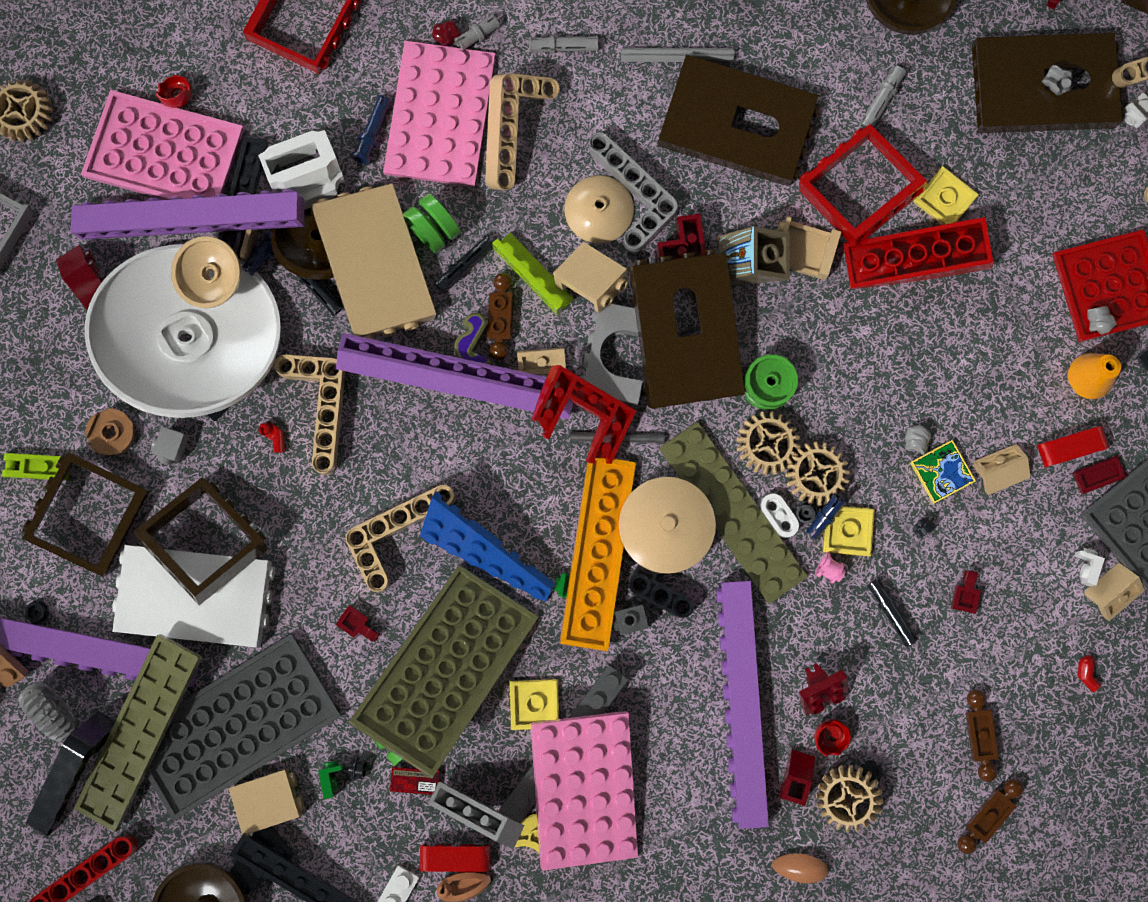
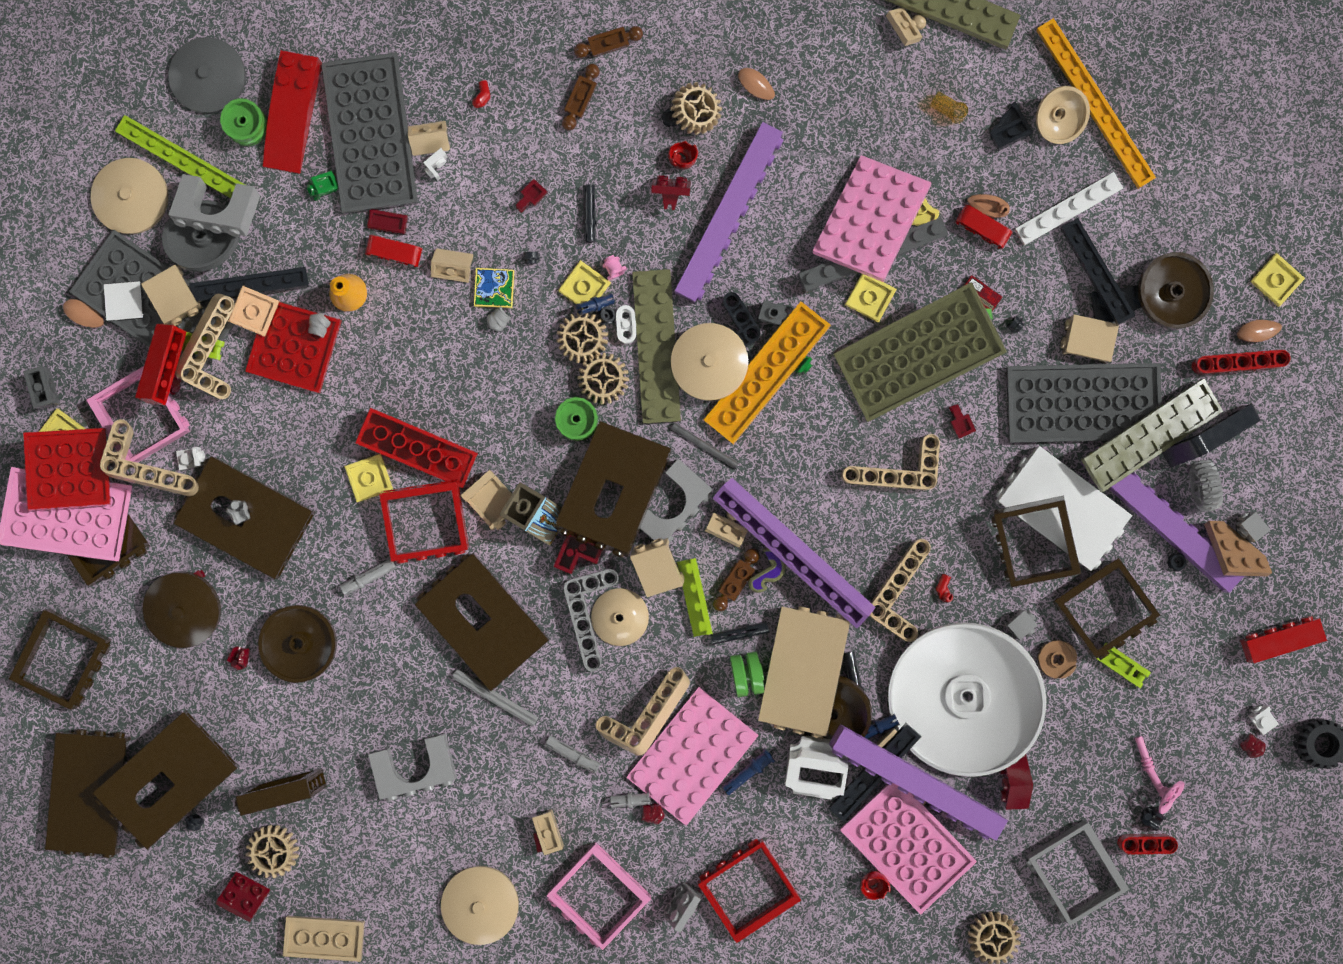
camera: 155 degrees left, 5 degrees up
(192, 269) = (940, 731): tan dish -> none
(328, 783) = (1041, 325): green bracket -> none
(476, 815) = (955, 243): light grey brick -> none
(480, 548) = (846, 421): blue wing -> none
(614, 415) = (724, 497): red wedge -> none
(797, 778) = (723, 142): dark red slope -> none

